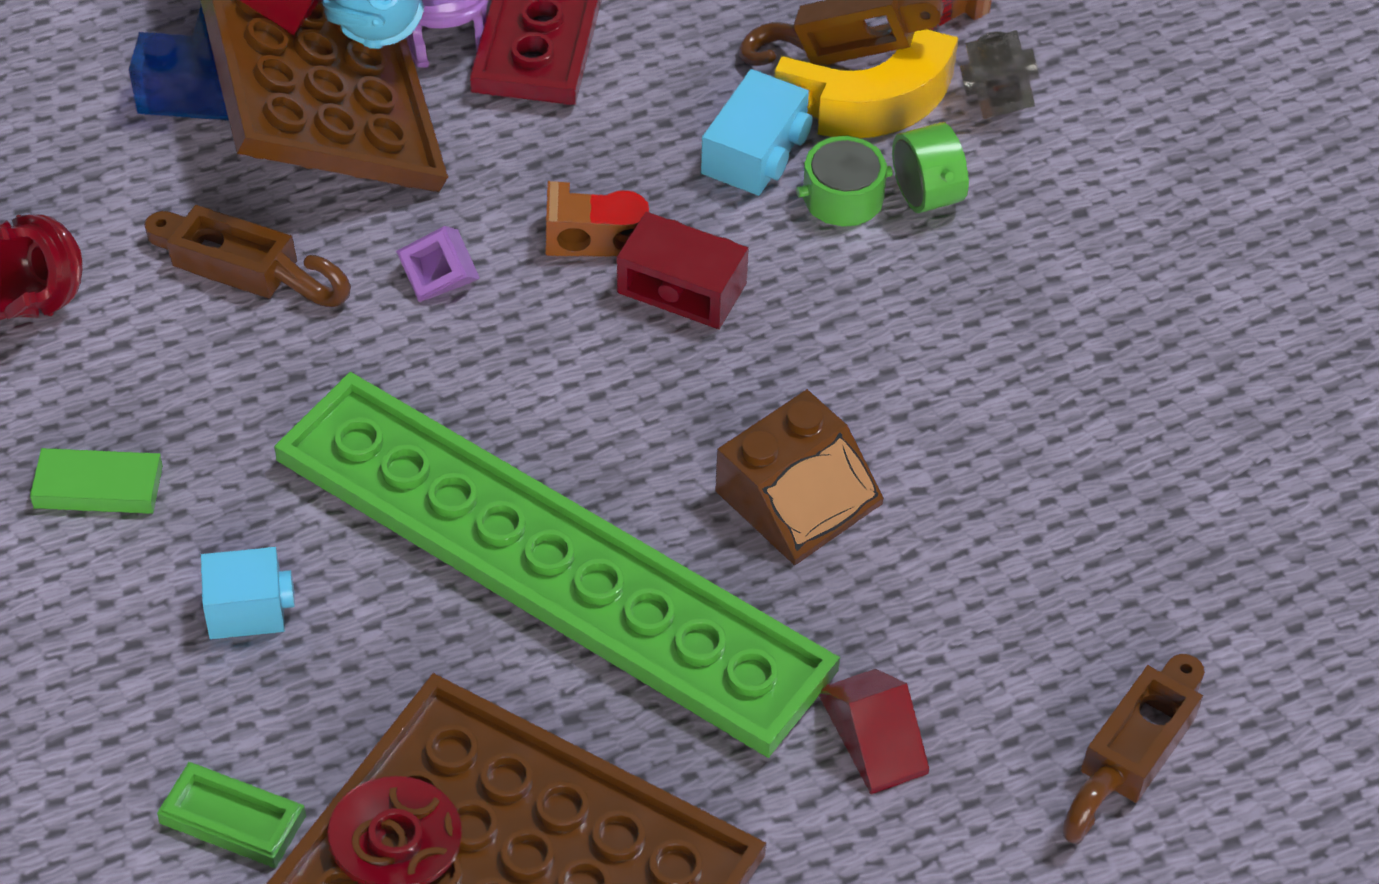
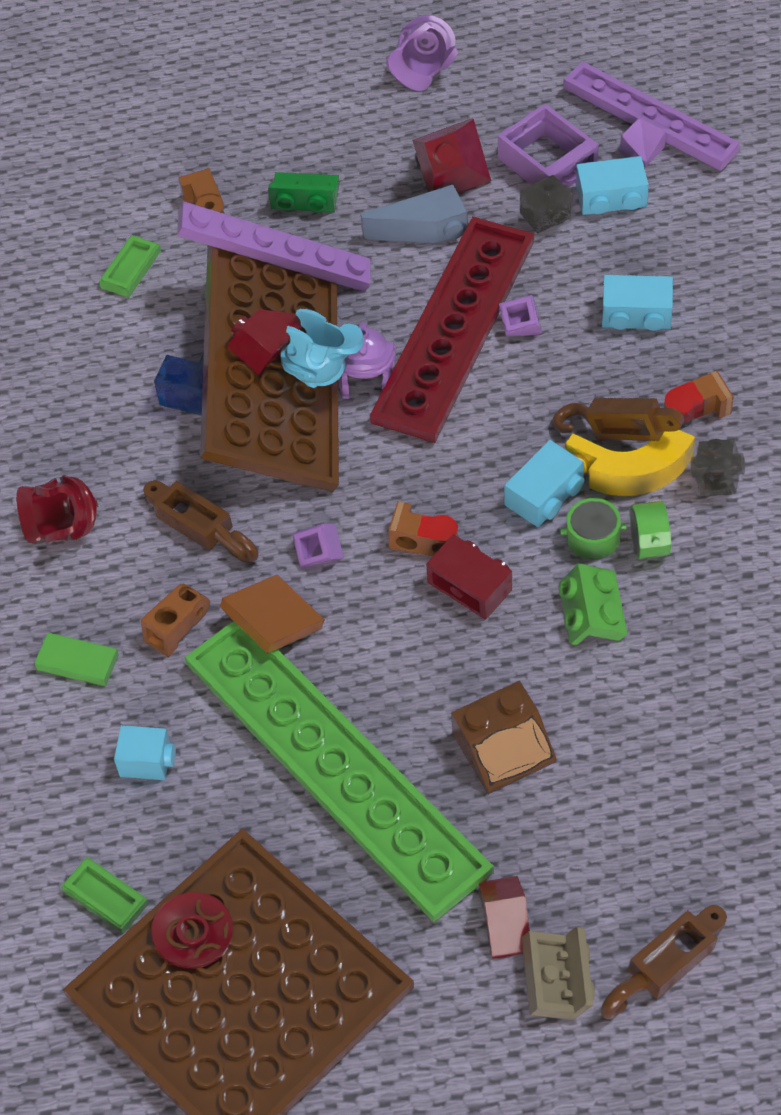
camera: 20 degrees right, 5 degrees up
(240, 397) = (173, 618): none -> dark orange leg
(395, 364) = (272, 613): none -> dark orange tile
(871, 281) = (592, 604): none -> bright green bracket
(984, 791) = (558, 974): none -> dark tan bracket

